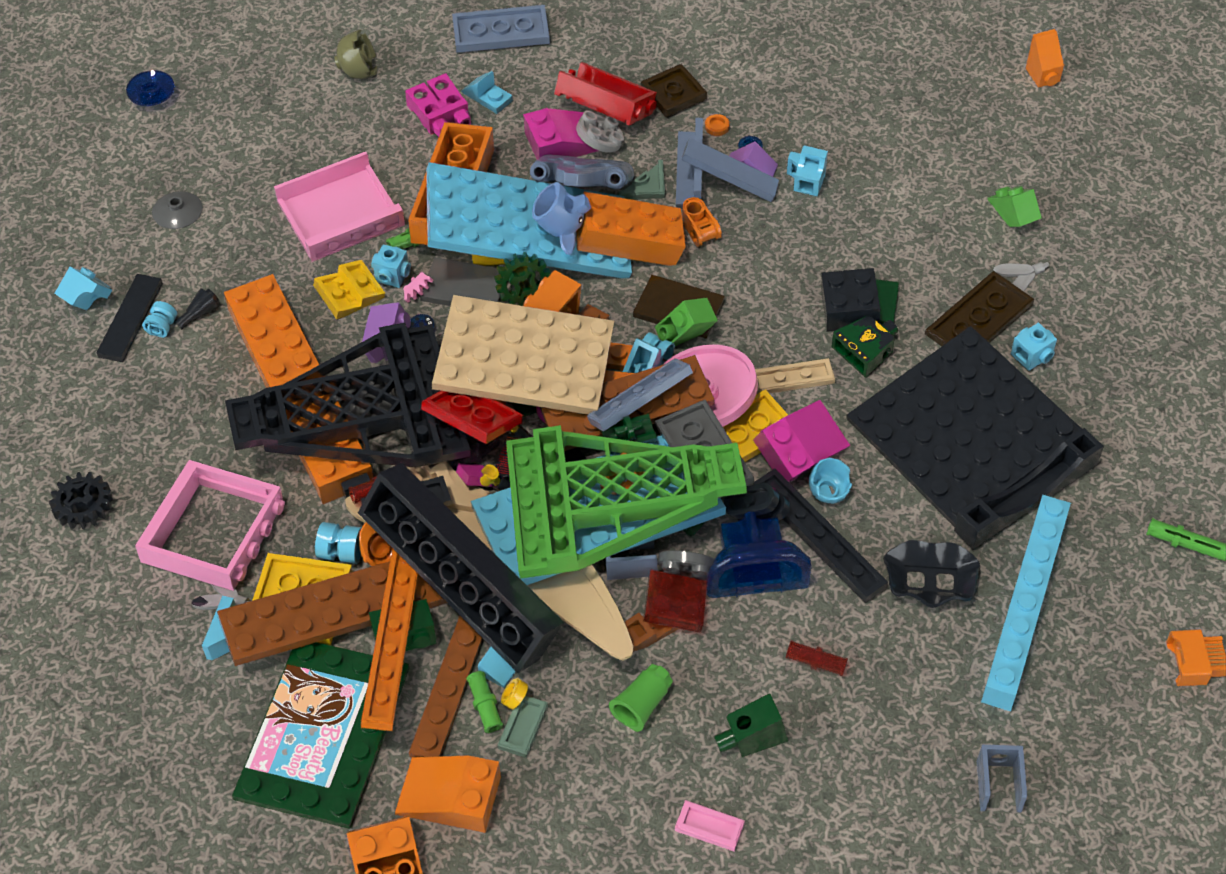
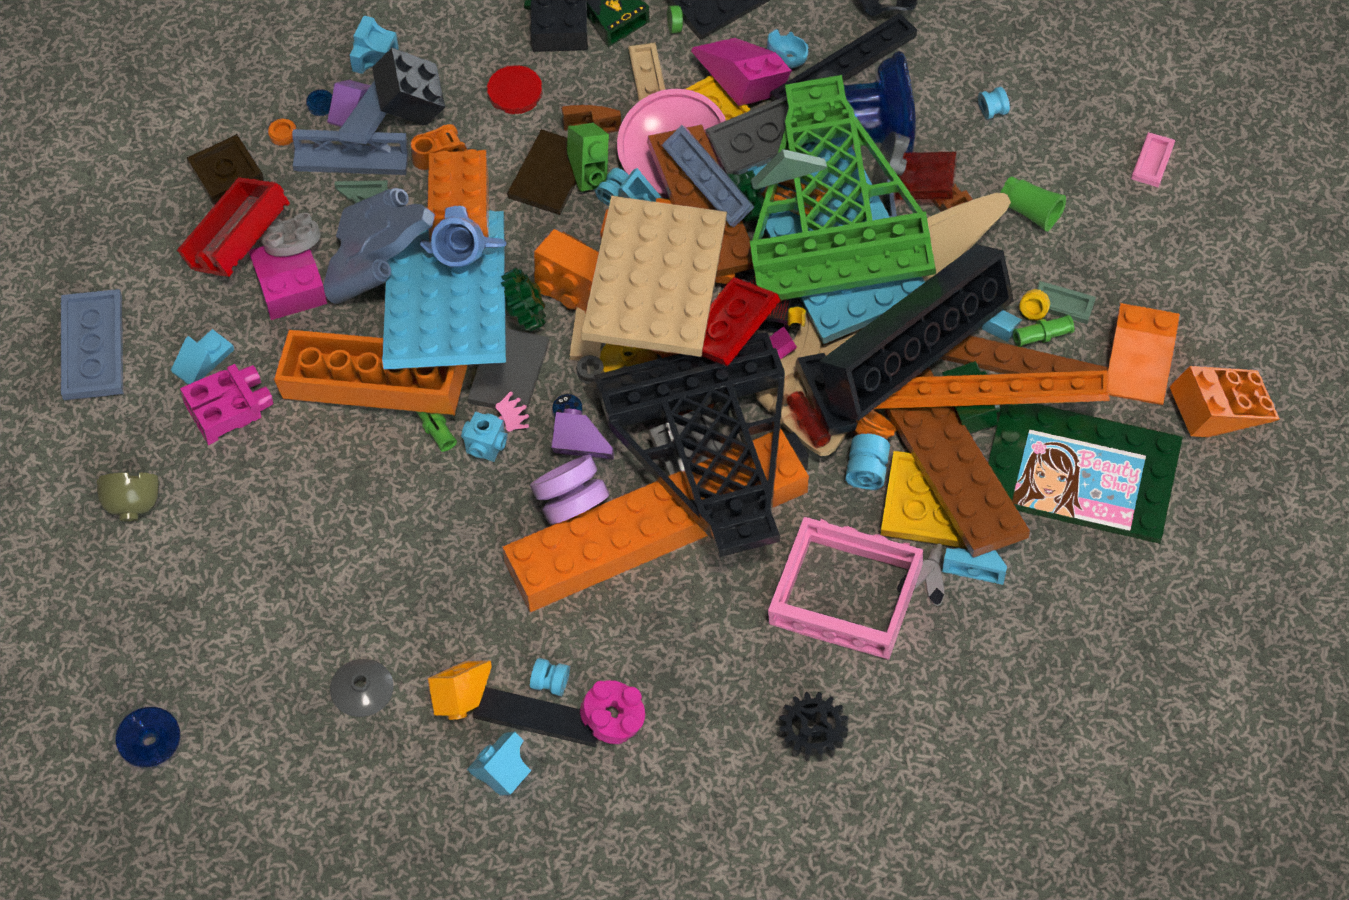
camera: 90 degrees left, 5 degrees up
(111, 348) = (624, 699): none -> dark pink plate
(157, 260) = (459, 688): none -> light orange slope
(201, 304) = (525, 634): black cone -> none
(321, 315) = (569, 489): none -> lavender wheel
(338, 206) = (382, 503): bright pink panel -> none
(349, 289) = (505, 484): yellow slope -> none
(632, 447) = (787, 166): none -> sand green tile
(735, 329) = (604, 117): none -> dark orange slope
(753, 728) = (1064, 113): dark green torso -> none
(755, 191) = (408, 87): none -> black brick
(772, 277) = (514, 89): none -> red tile
(773, 666) = (993, 102): none -> medium azure wheel
(816, 658) = (980, 72): clear red pin -> none
(863, 391) = (674, 19): none -> bright green tile

